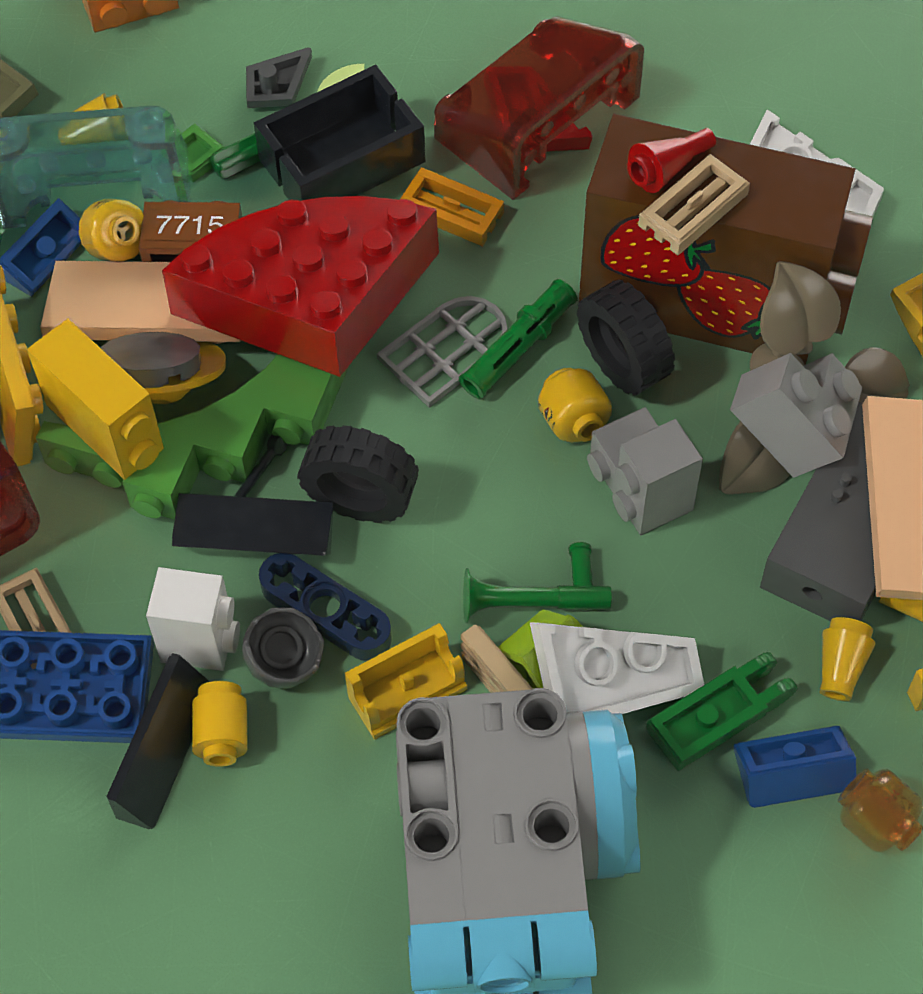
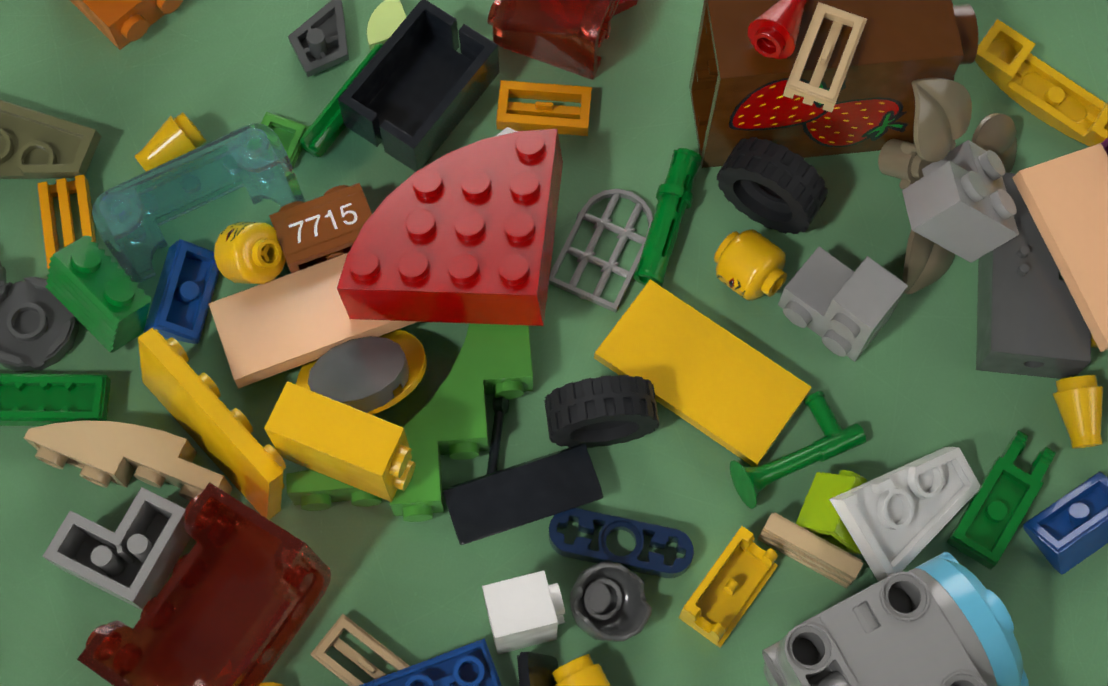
camera: 25 degrees left, 10 degrees up
(482, 486) = (703, 373): none -> yellow tile

